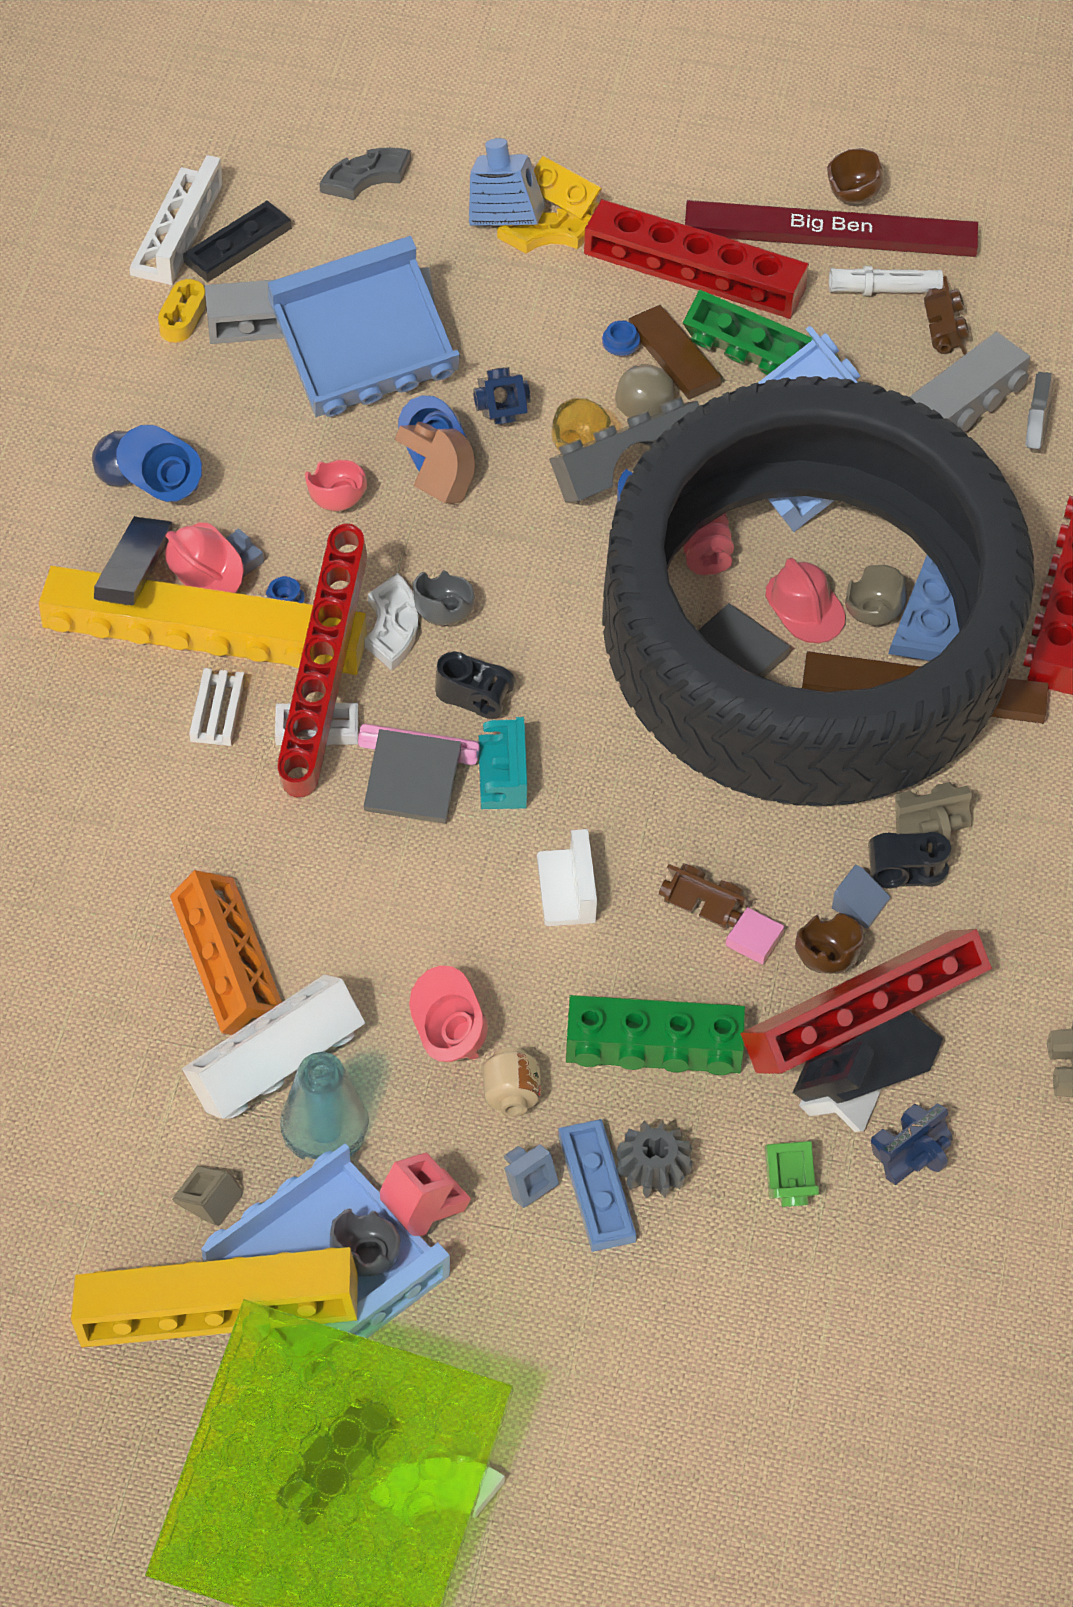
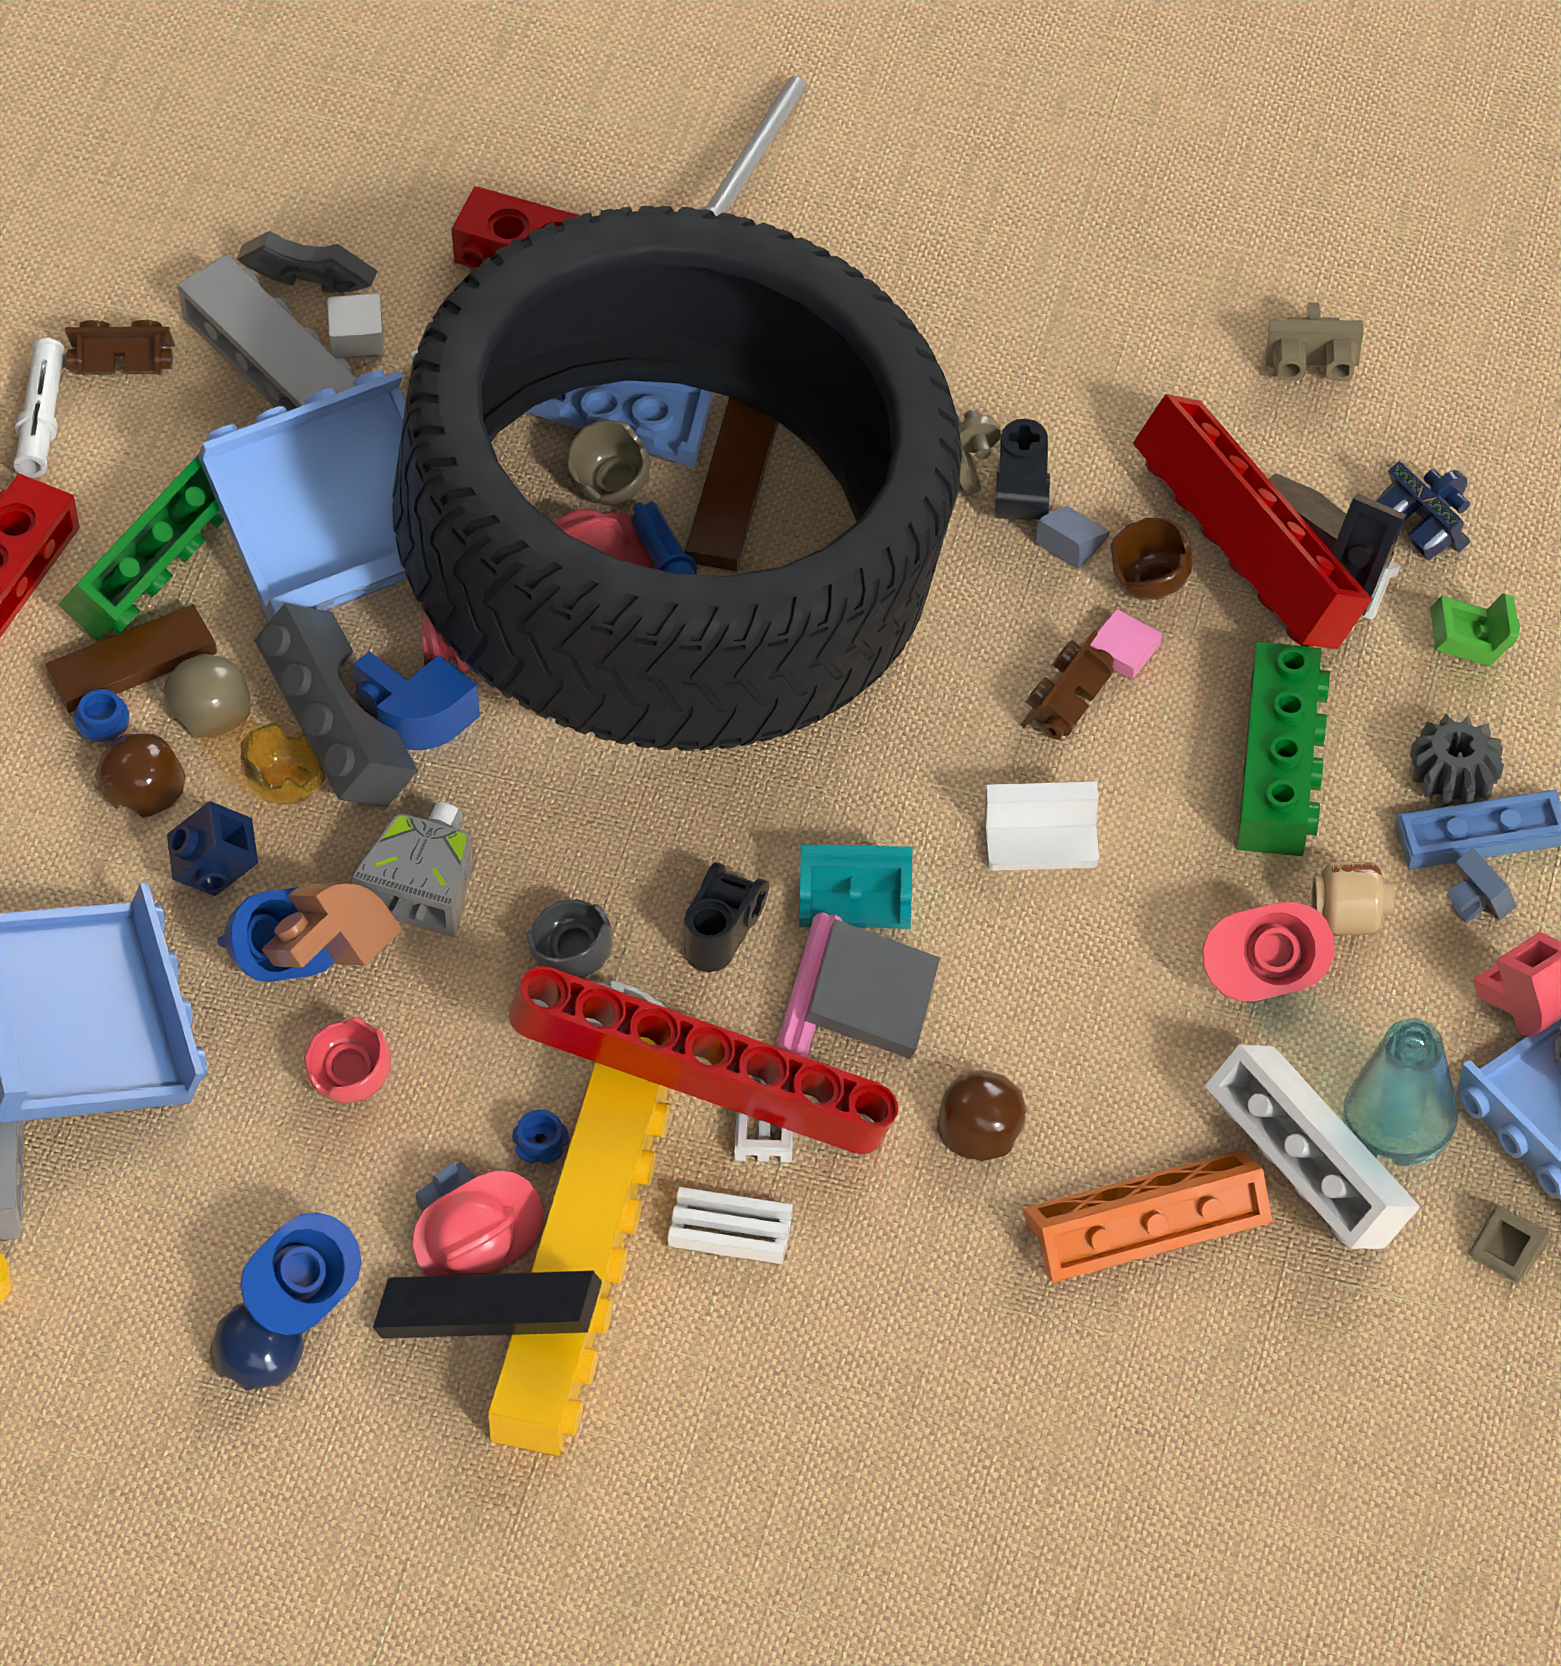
camera: 85 degrees left, 0 degrees up
(311, 849) = (981, 1115): none -> reddish brown hair
(499, 513) = (421, 869): none -> light grey torso
(574, 363) = (140, 774): none -> reddish brown hair
(778, 636) = (660, 540): none -> blue axle
(997, 442) = (355, 325): none -> white piece

